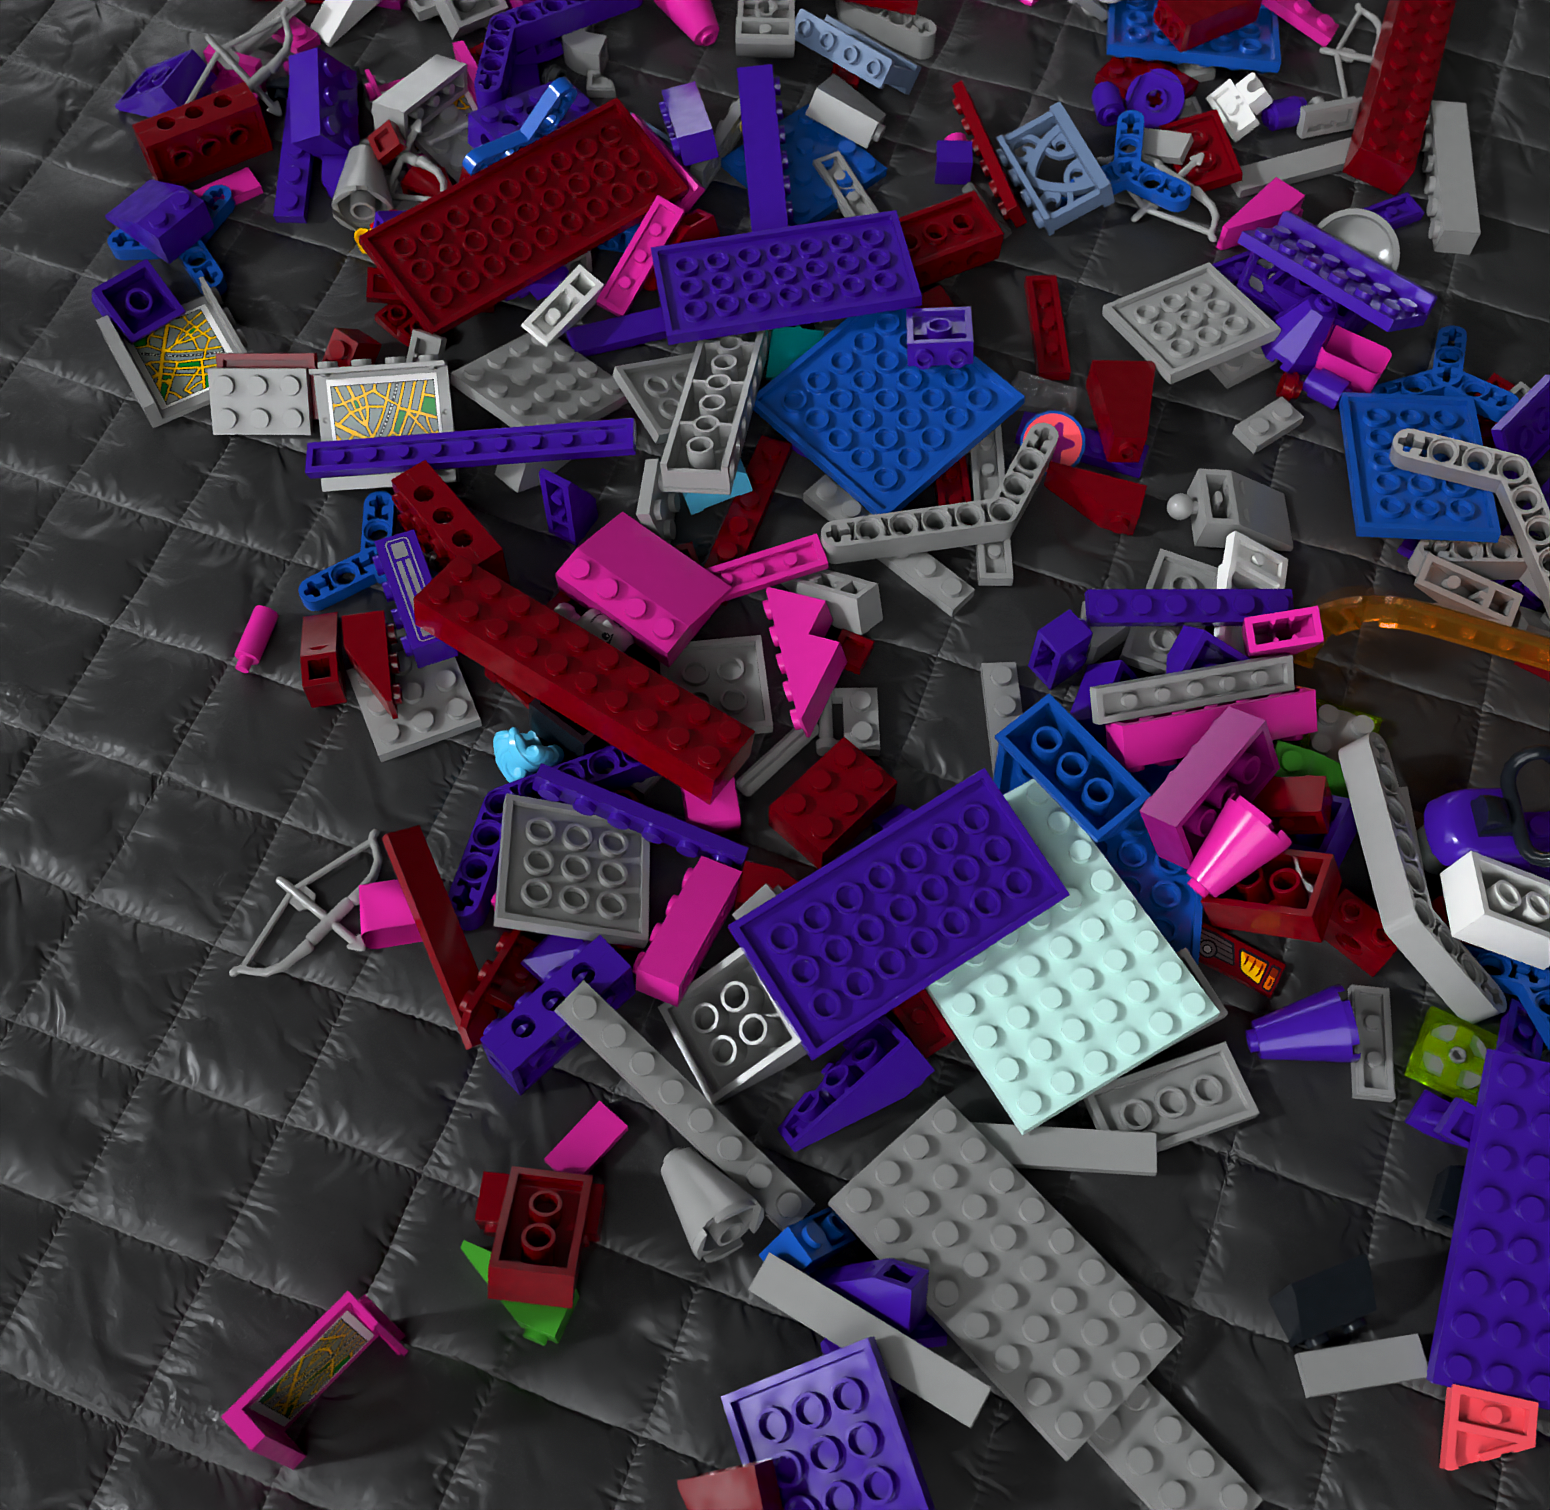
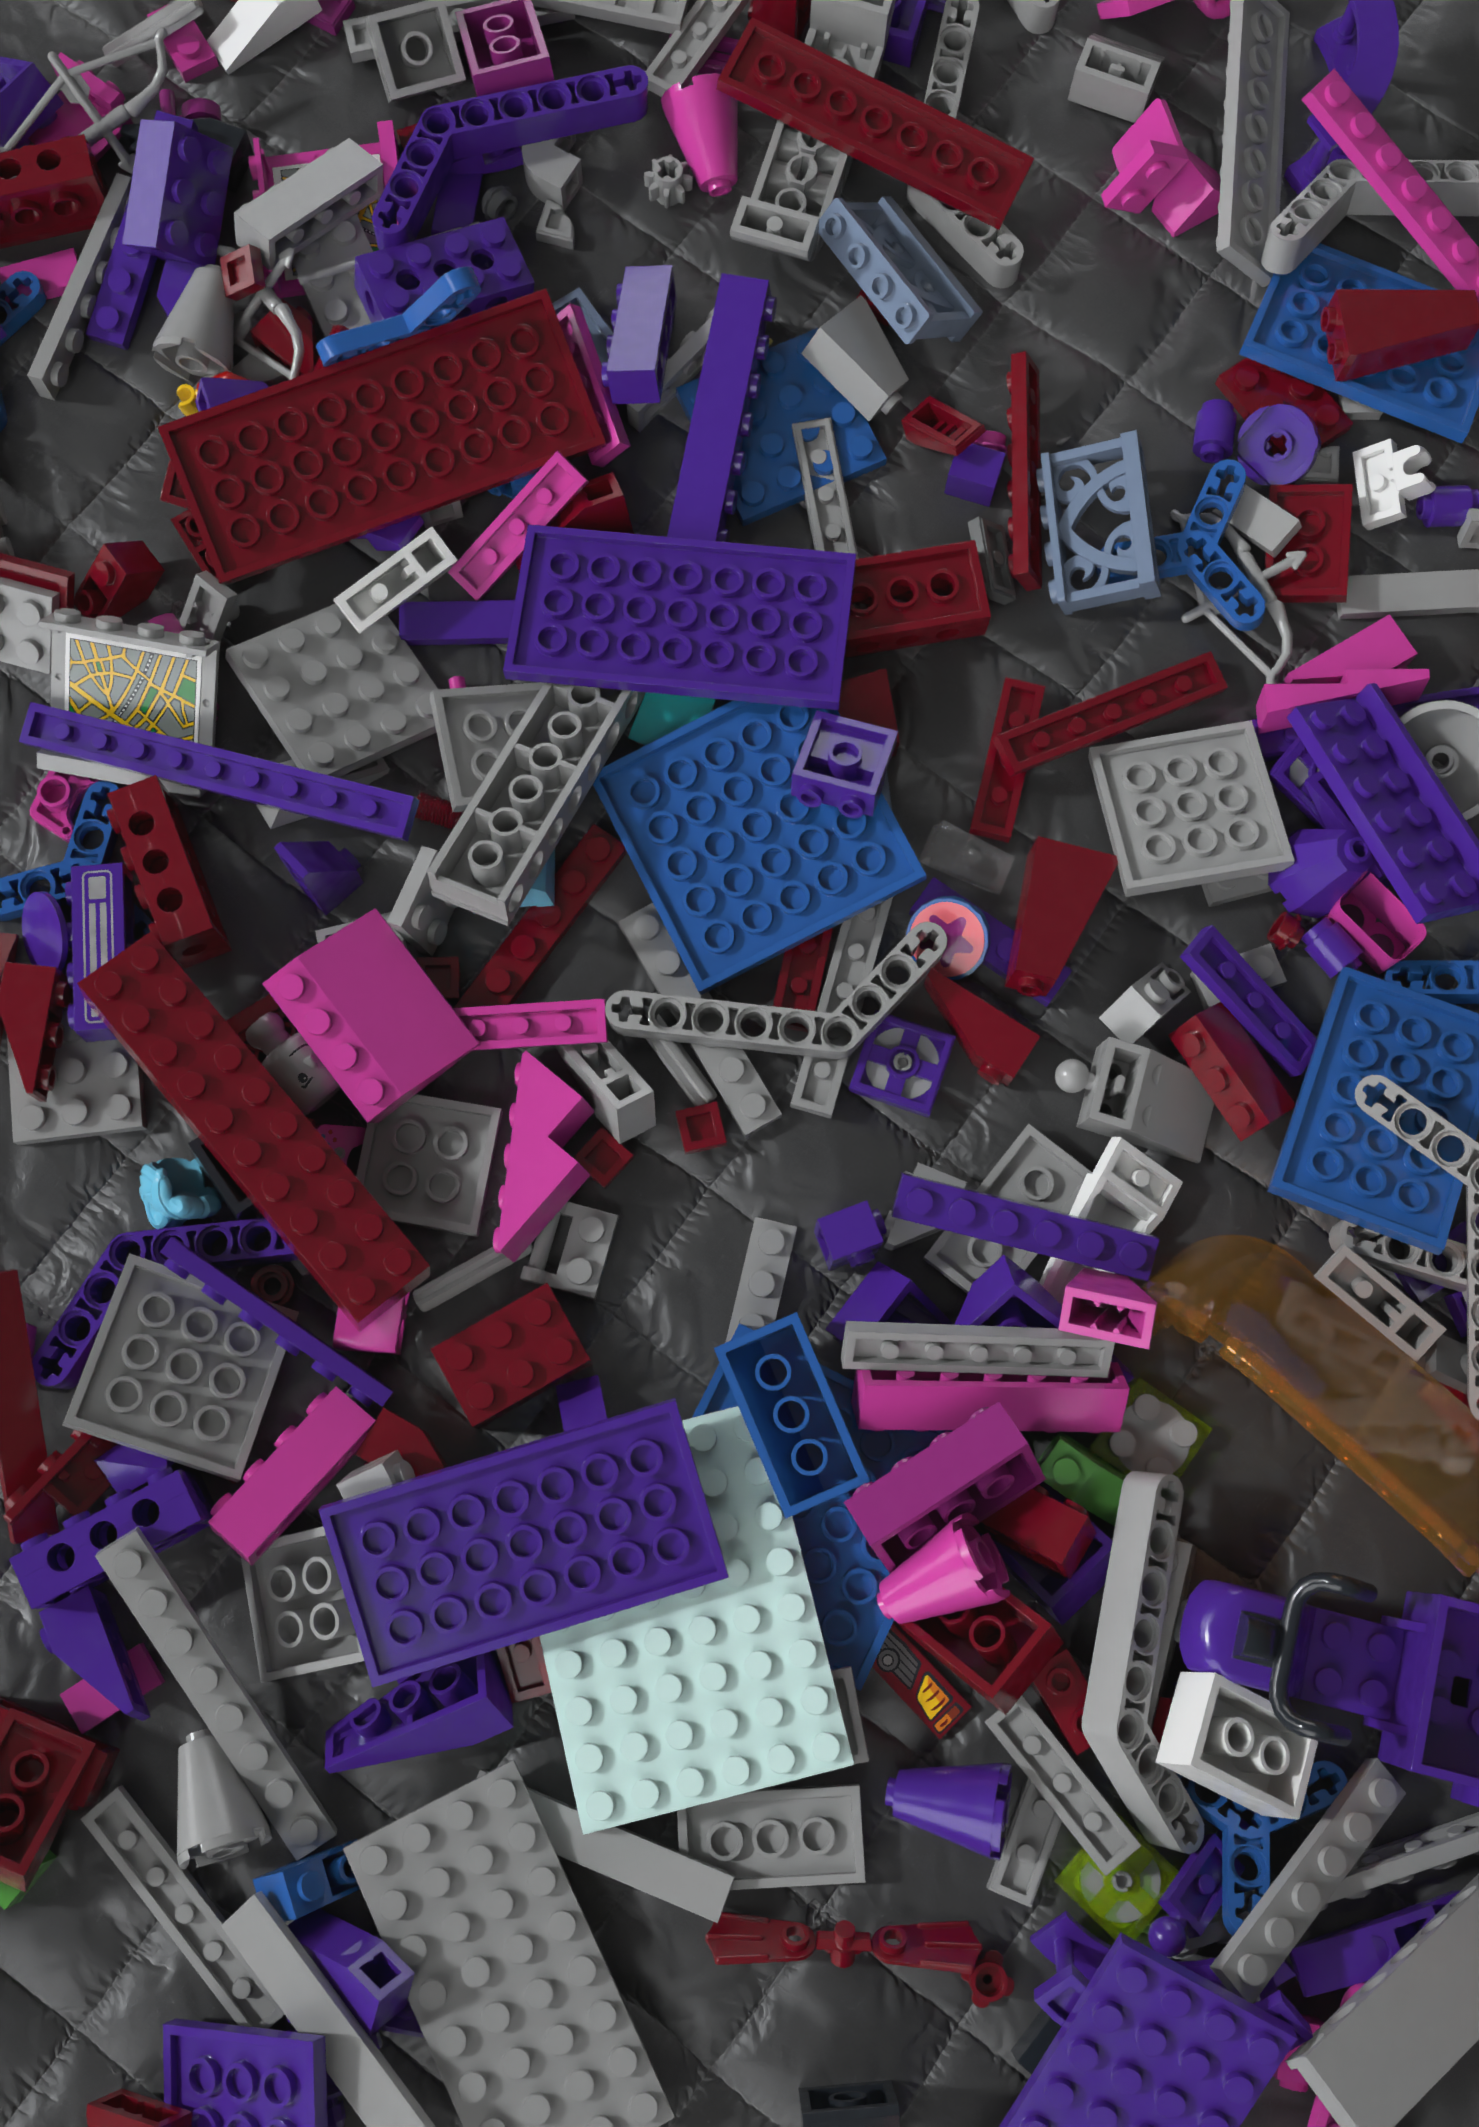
camera: 15 degrees right, 15 degrees up
(263, 193) = (77, 303): none -> light grey plate
(343, 514) = (57, 802): none -> dark pink piece
(362, 591) = (44, 931): none -> dark purple piece
(564, 1110) = (89, 1641): none -> dark purple slope
(655, 452) = (424, 809): none -> dark red piece
(671, 40) = (668, 181): none -> light grey gear
(703, 1299) = (180, 1907): none -> light grey plate
(888, 579) = (681, 1066): none -> light grey axle
(917, 613) = (701, 1128): none -> dark red plate
(919, 137) = (934, 422): none -> dark red slope
(1051, 536) = (902, 1065): none -> dark purple piece
(1108, 280) = (1109, 714): none -> dark red plate
(1211, 450) = (1145, 1003): none -> light grey slope
(1223, 244) = (1280, 699): none -> dark pink slope
(1287, 428) = (1250, 1000): none -> dark purple plate
(1292, 477) = (1232, 1070): none -> dark red brick
(1325, 1148) = (923, 1945): none -> dark red piece
(1383, 992) = (1063, 1785): none -> light grey plate
(1392, 1156) = (1000, 1984): none -> dark red plate

